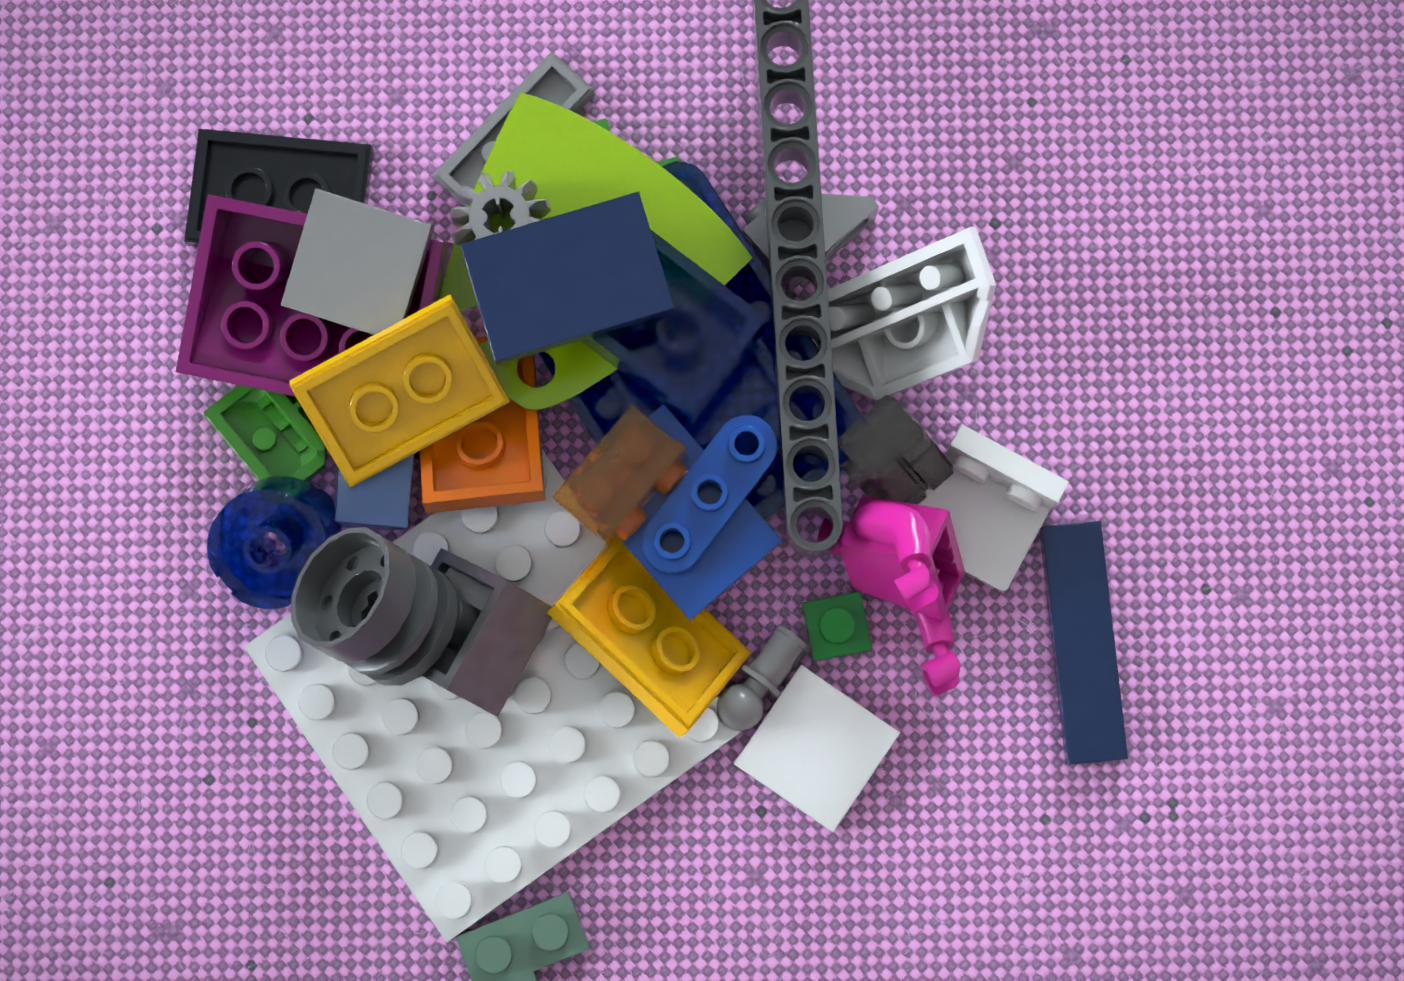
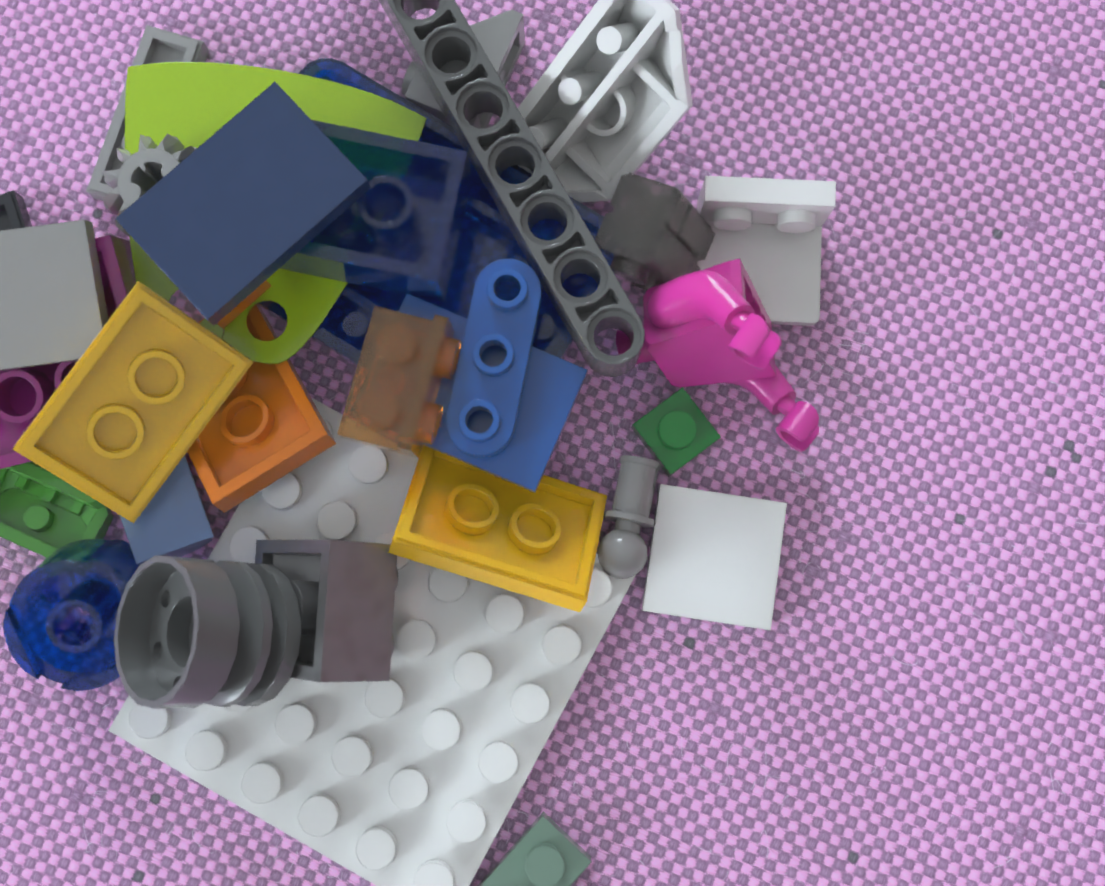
camera: 25 degrees left, 0 degrees up
(1083, 643) = (914, 337): dark blue tile -> none

